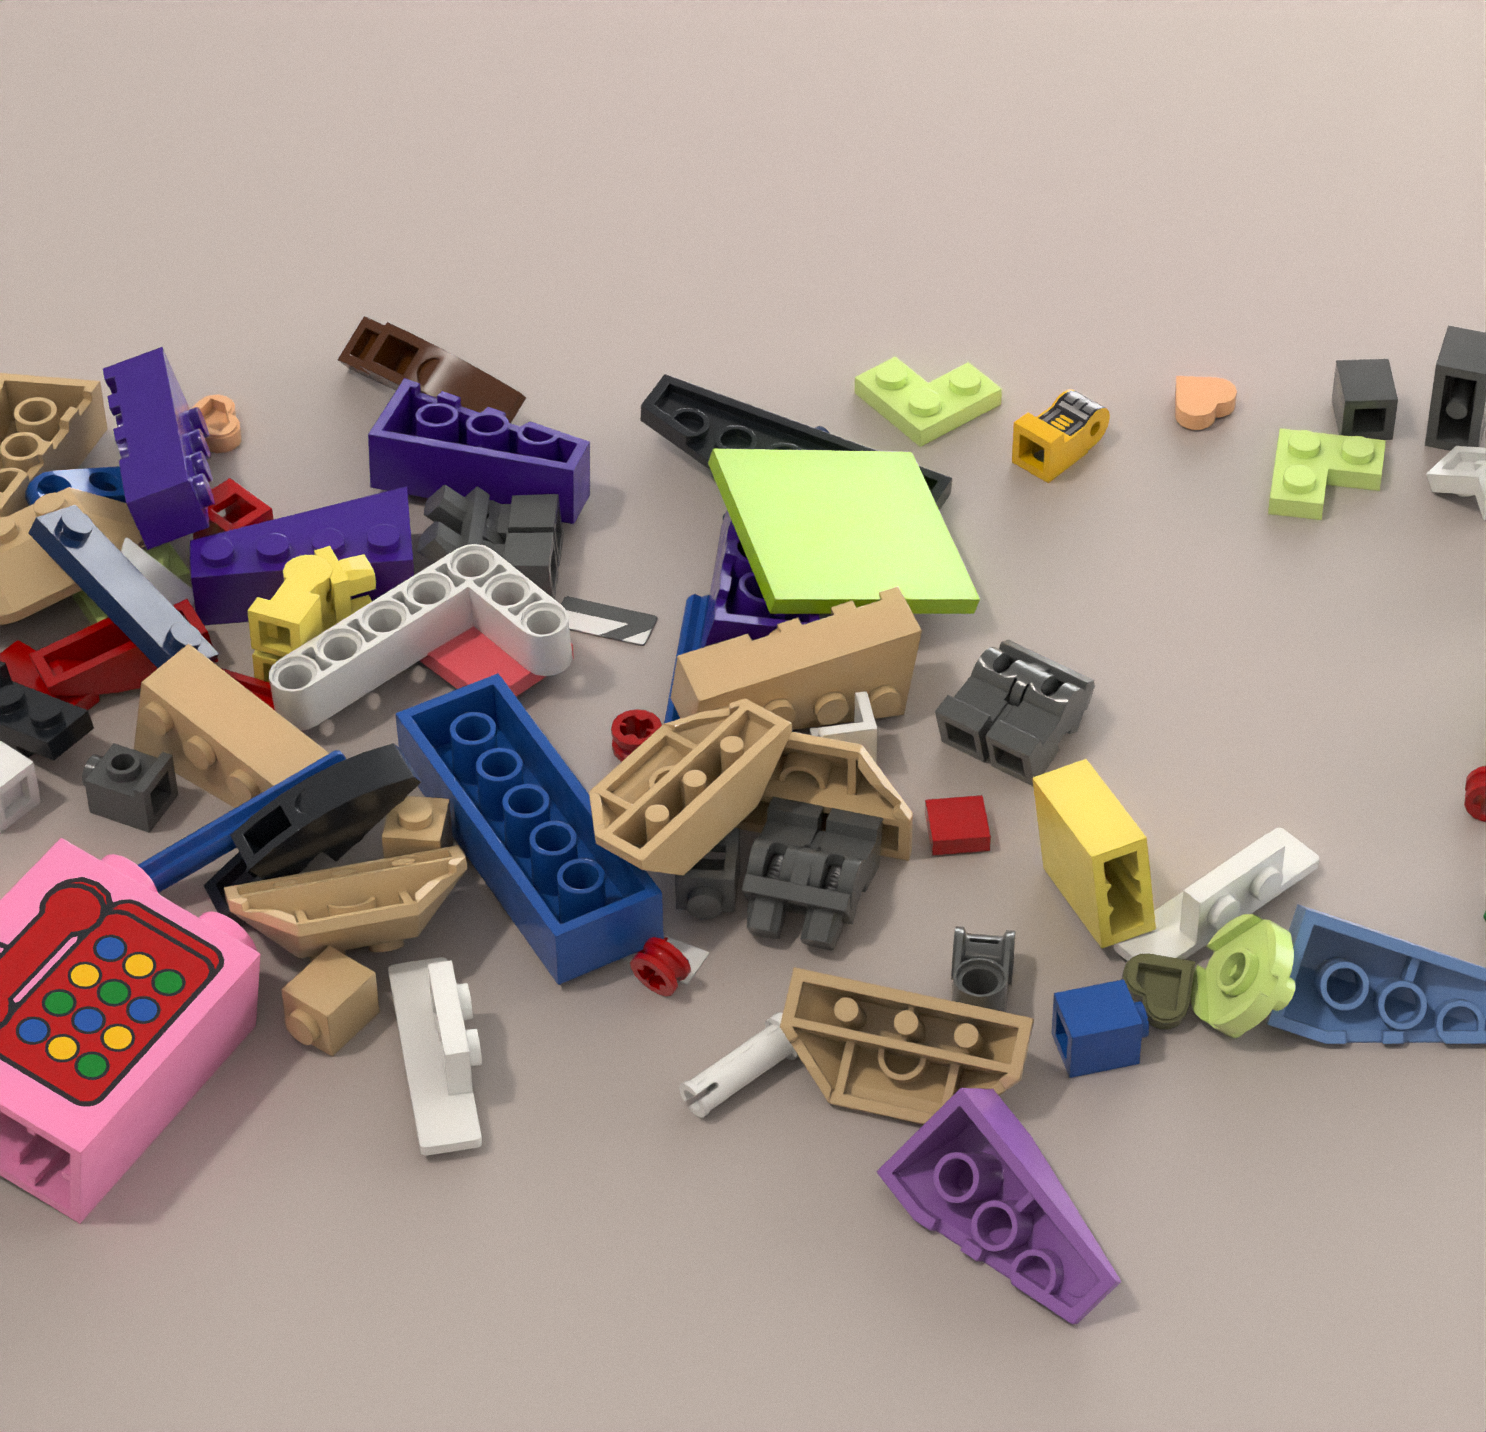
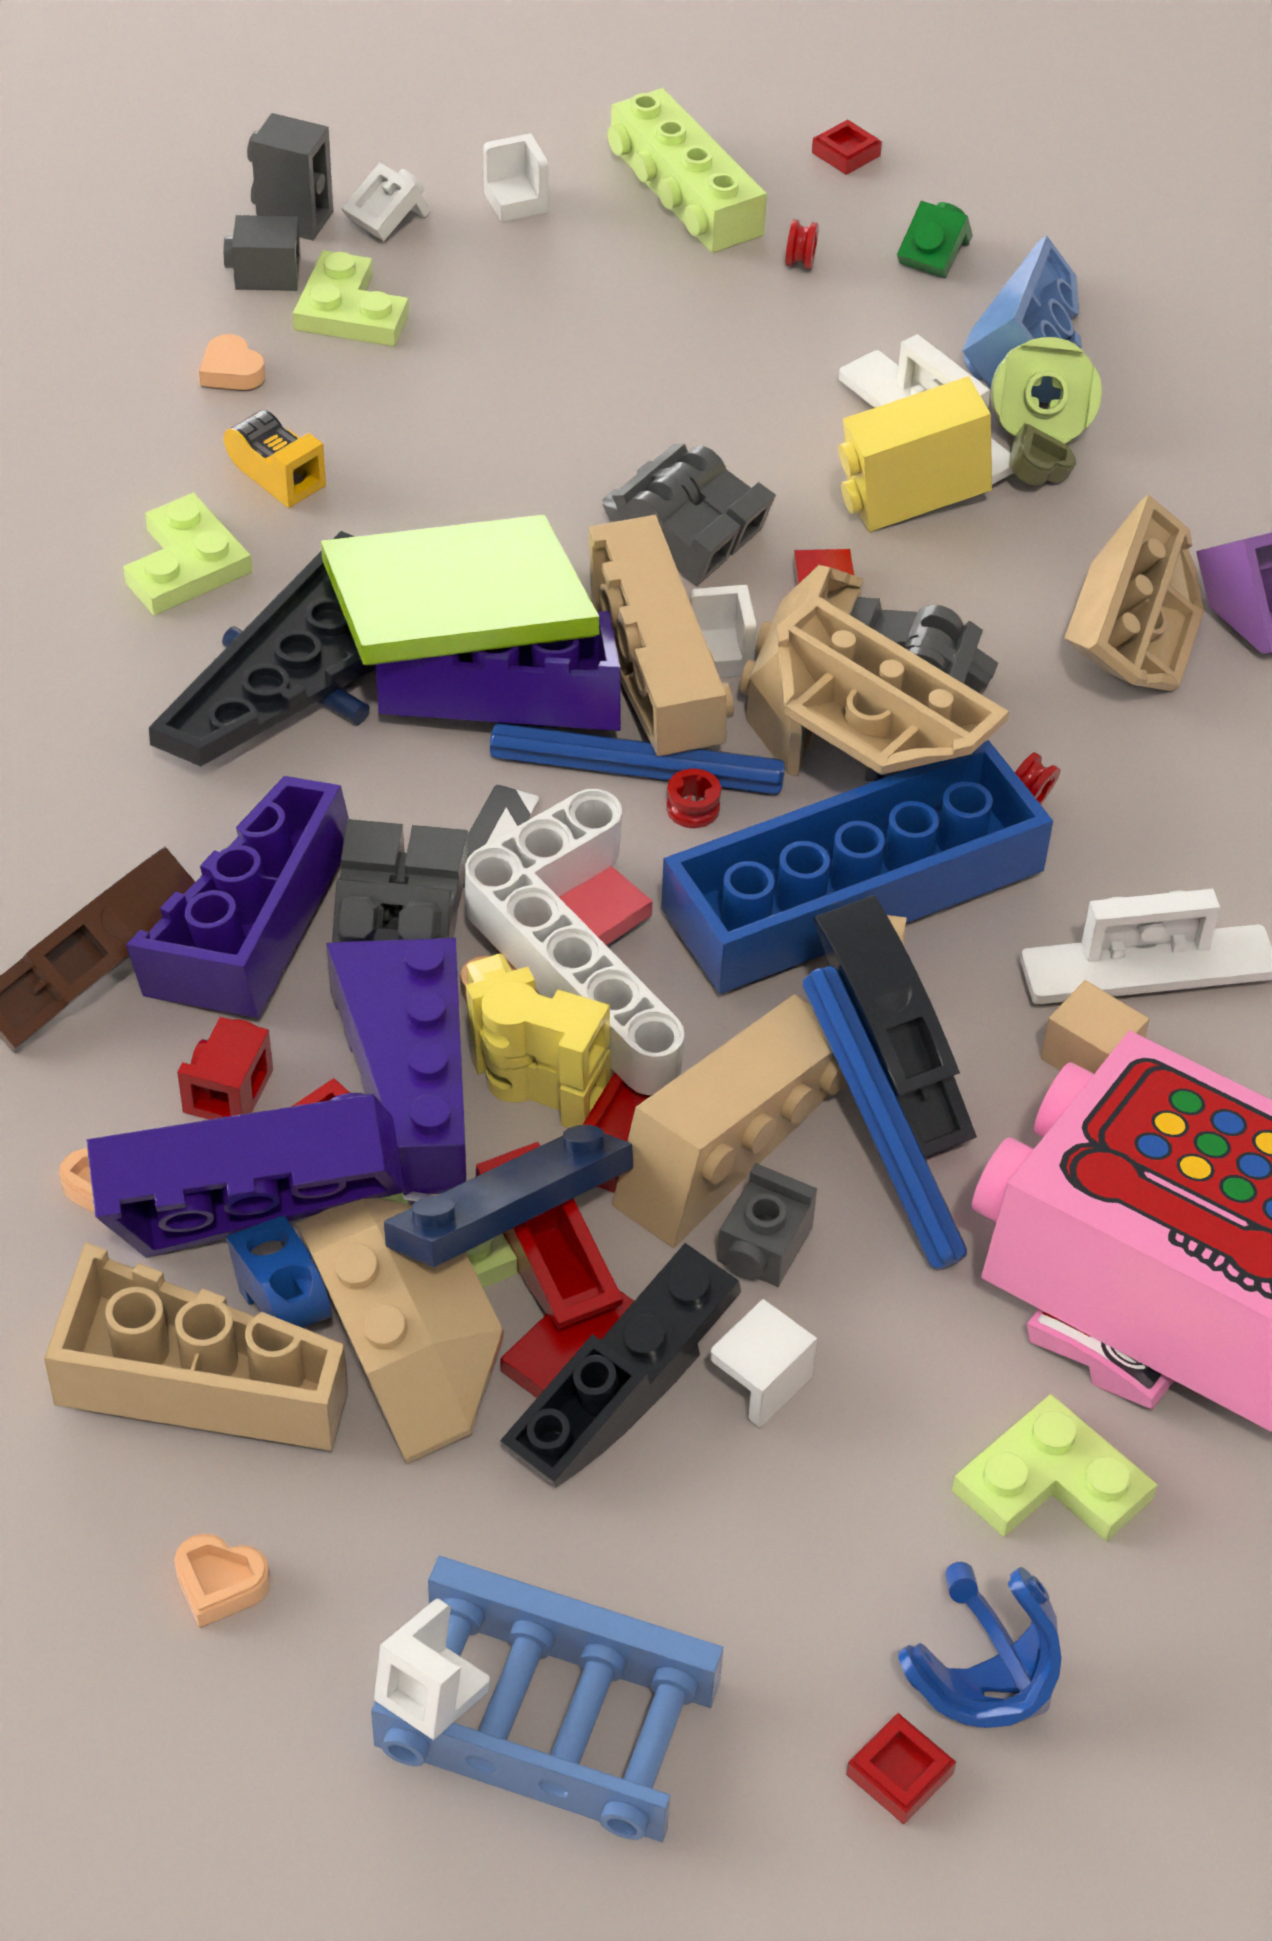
camera: 90 degrees left, 5 degrees up
(303, 469) = (226, 1071): none -> red brick
(350, 904) = (992, 986): tan wedge -> none
(739, 1067) = (1115, 704): white pin -> none
(982, 968) = (1041, 564): dark grey piece -> none
(1098, 1028) = (1094, 496): blue brick -> none

